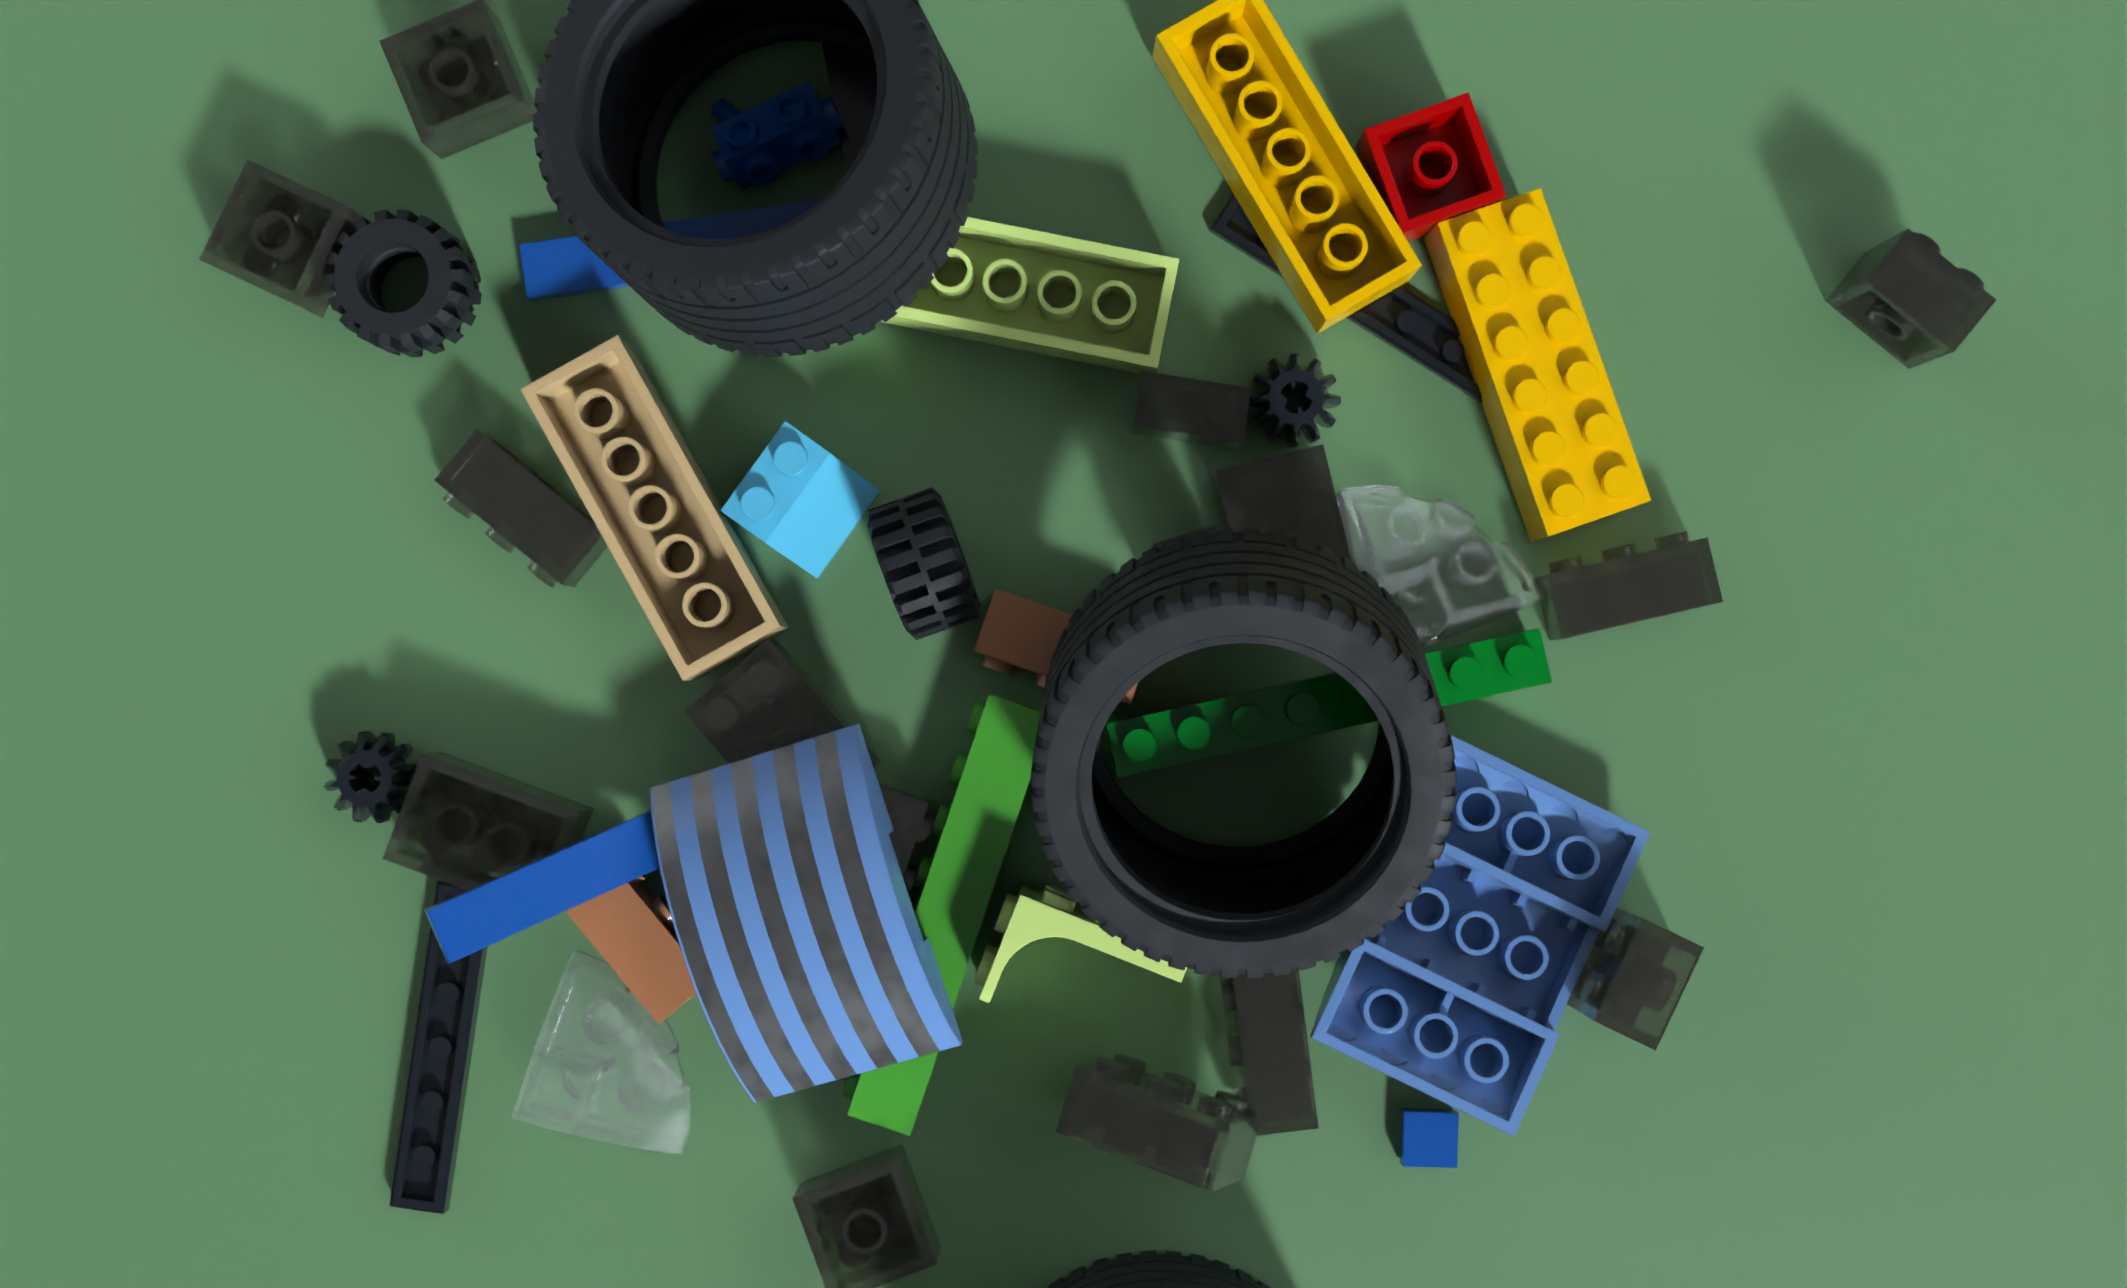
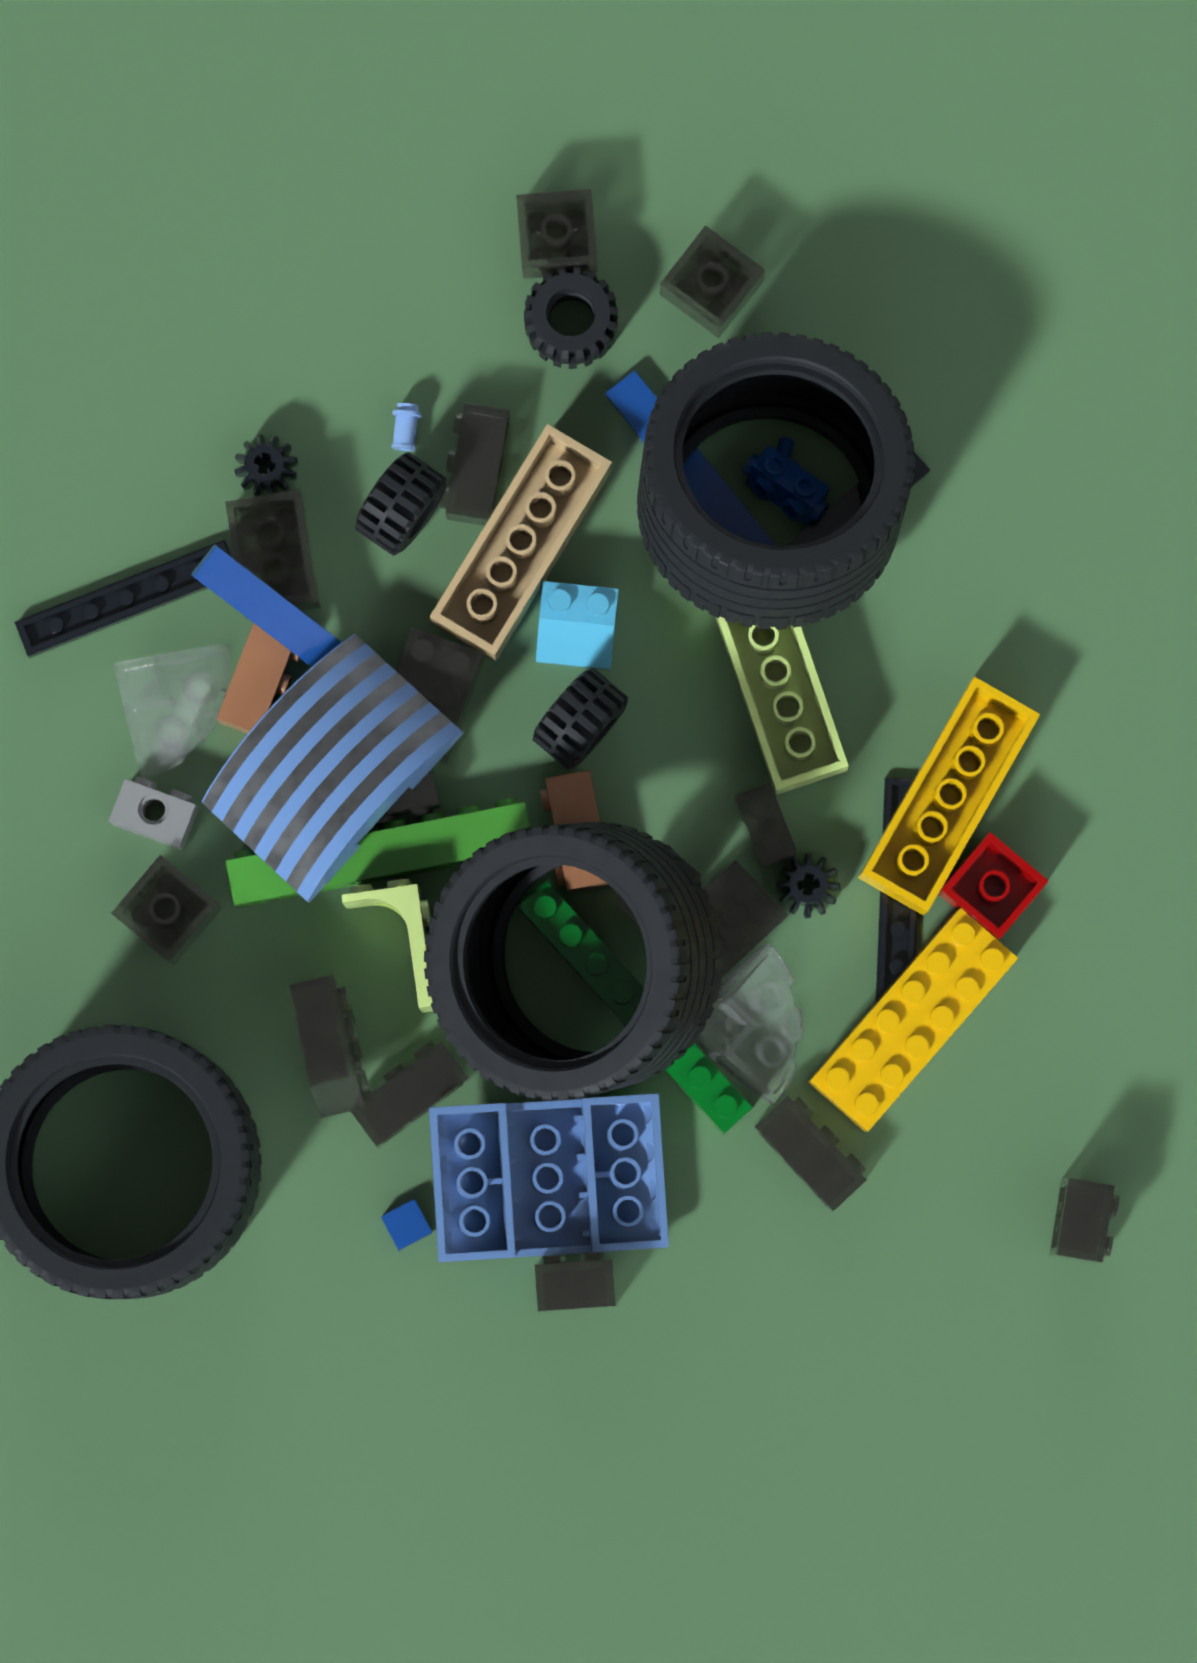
camera: 65 degrees right, 5 degrees down
(424, 572) = (405, 426): none -> light blue pin
(515, 634) = (400, 503): none -> black tyre
(719, 1196) = (131, 808): none -> light grey brick

